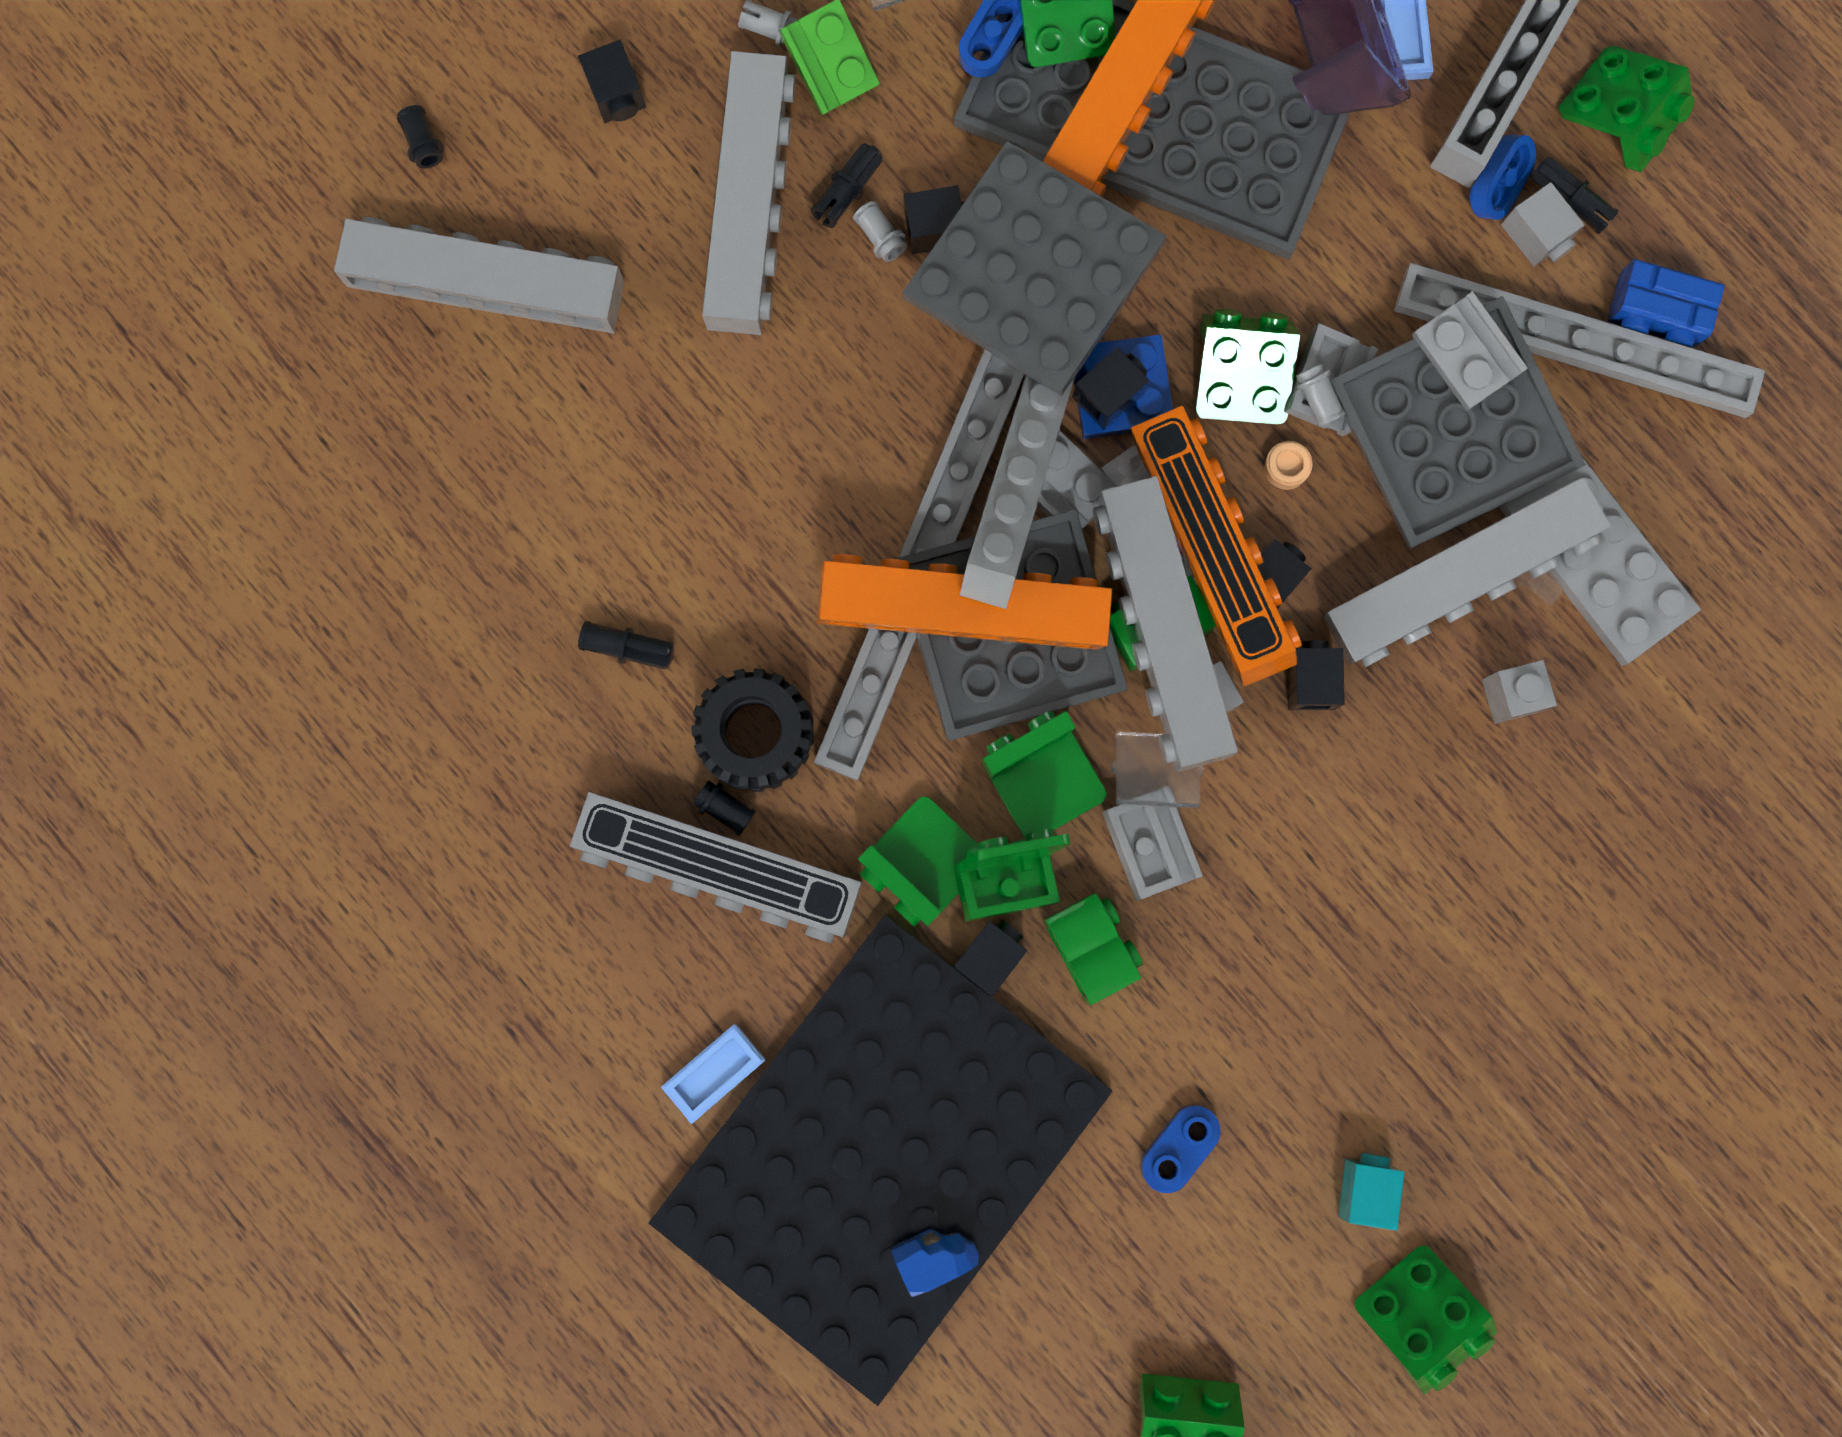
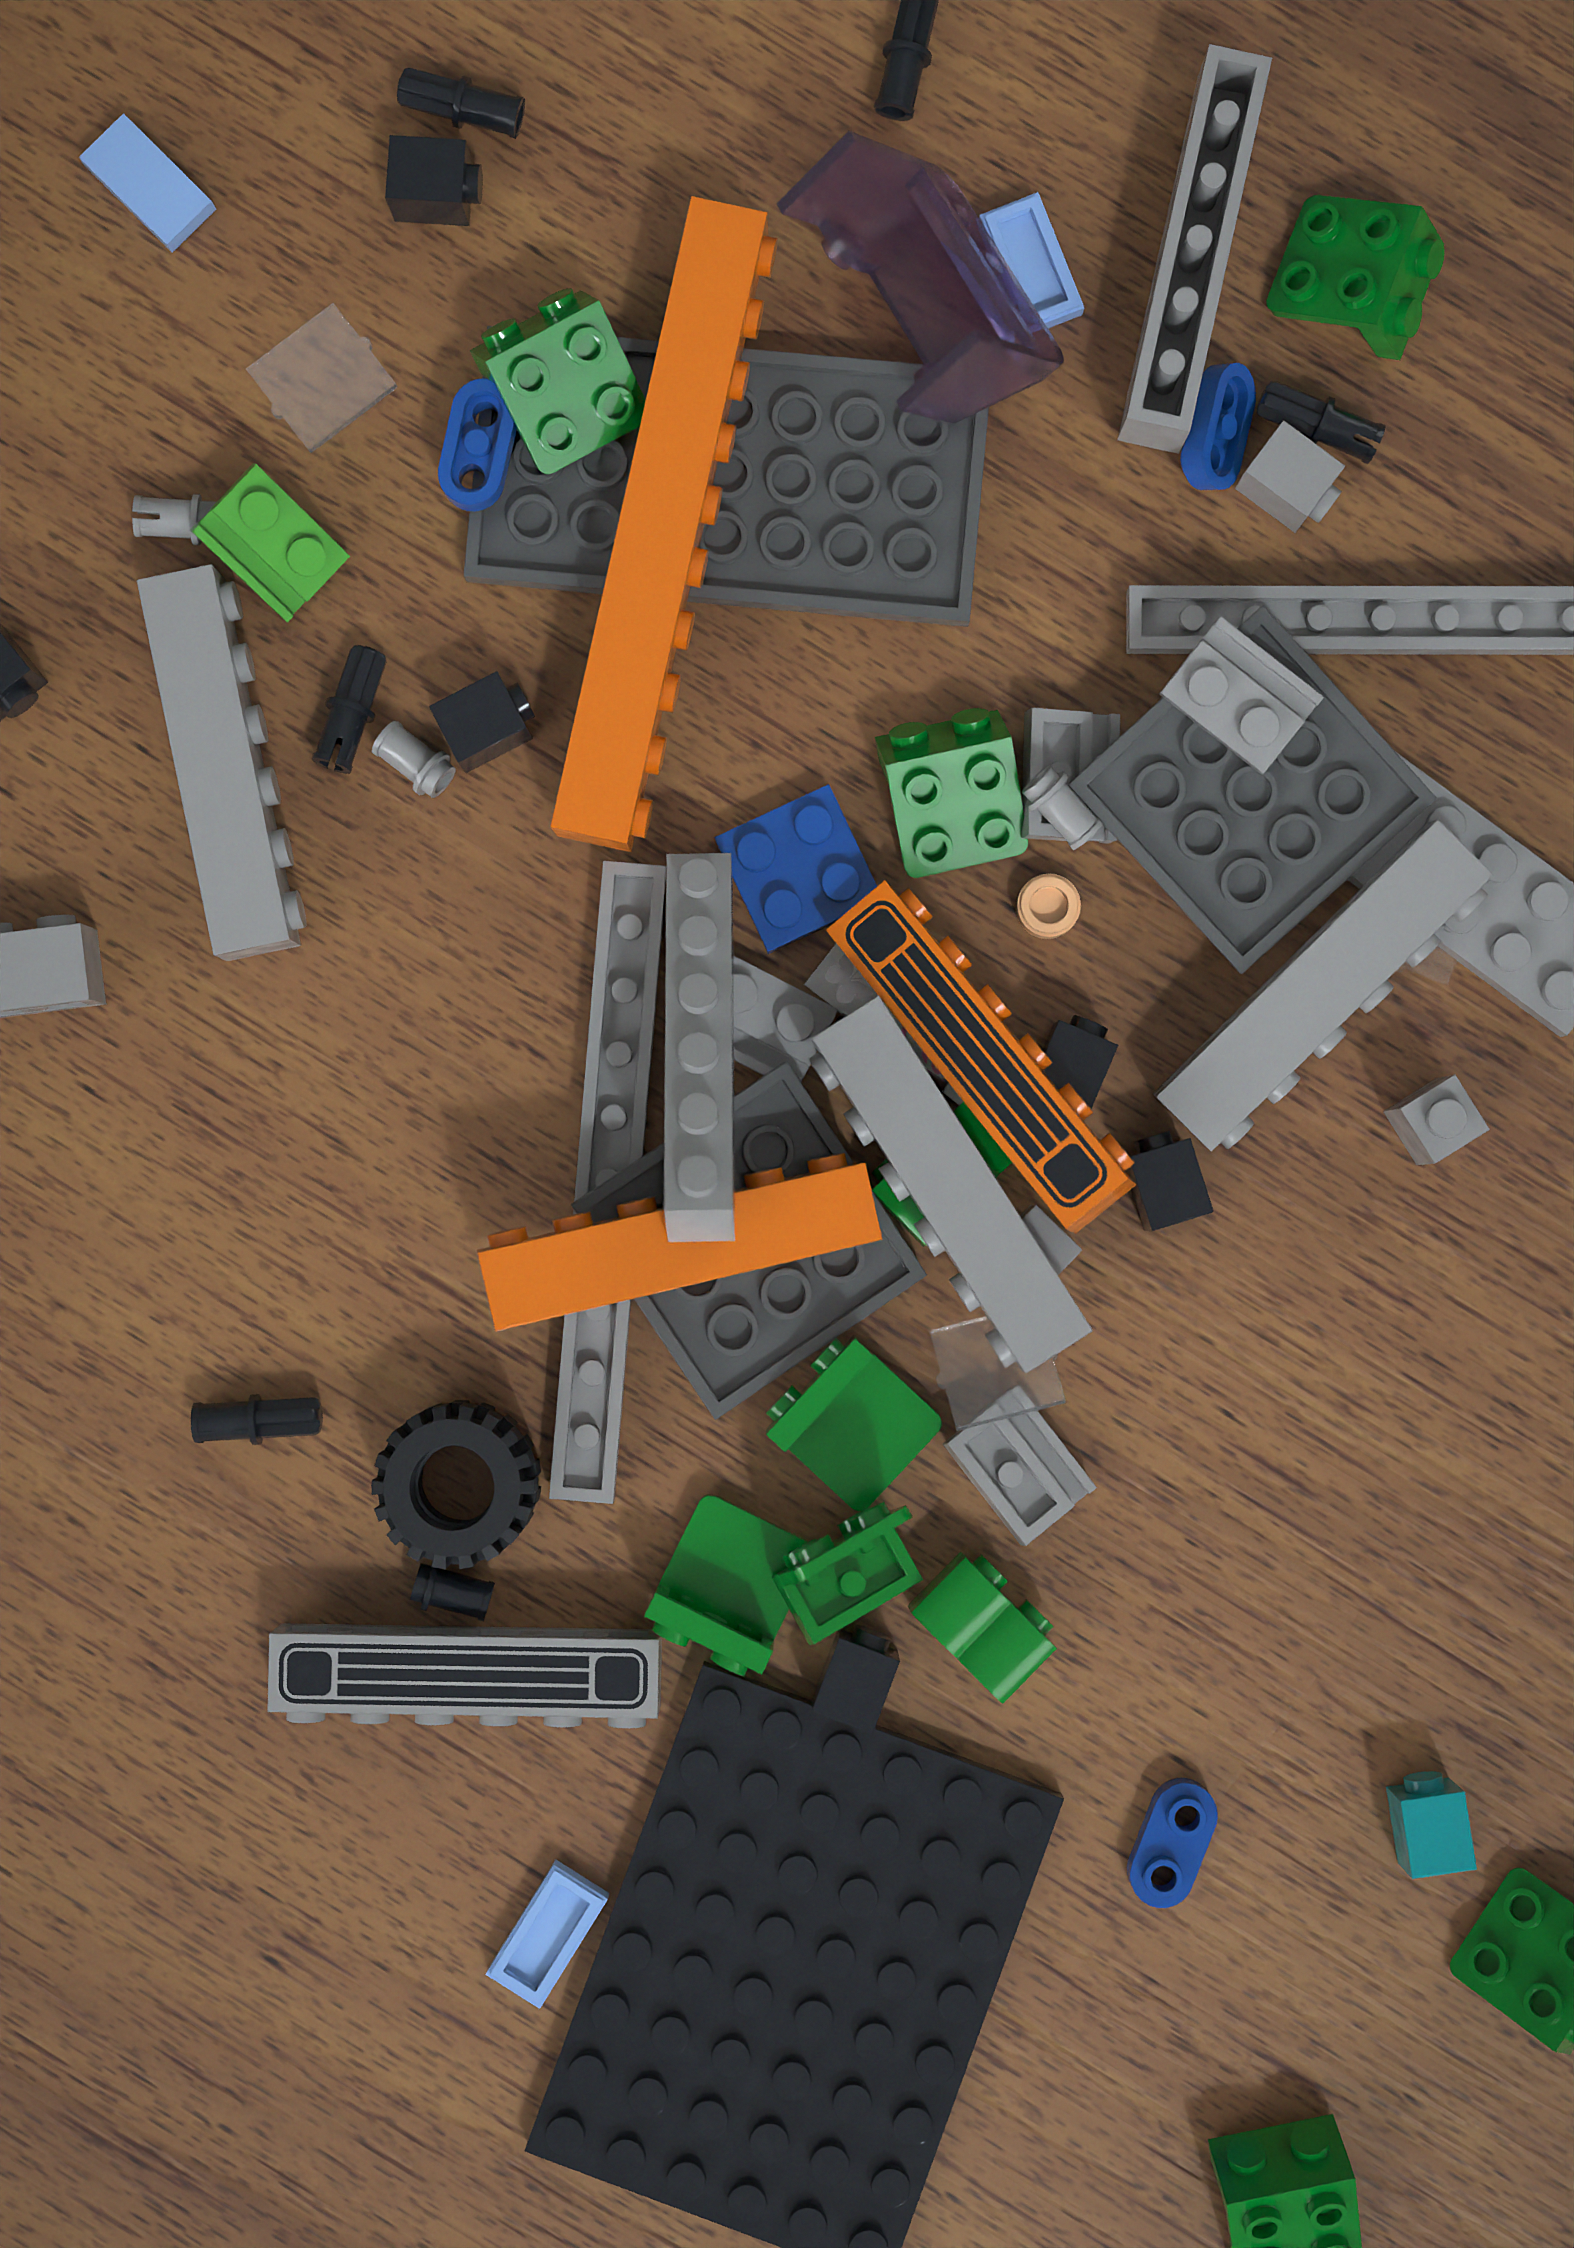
camera: 10 degrees left, 5 degrees up
(933, 1260) = (900, 2093): blue rock -> none
(1034, 268) = (632, 763): dark grey plate -> none
(1111, 387) = (784, 884): black brick -> none
(1665, 303) = (1482, 536): blue brick -> none

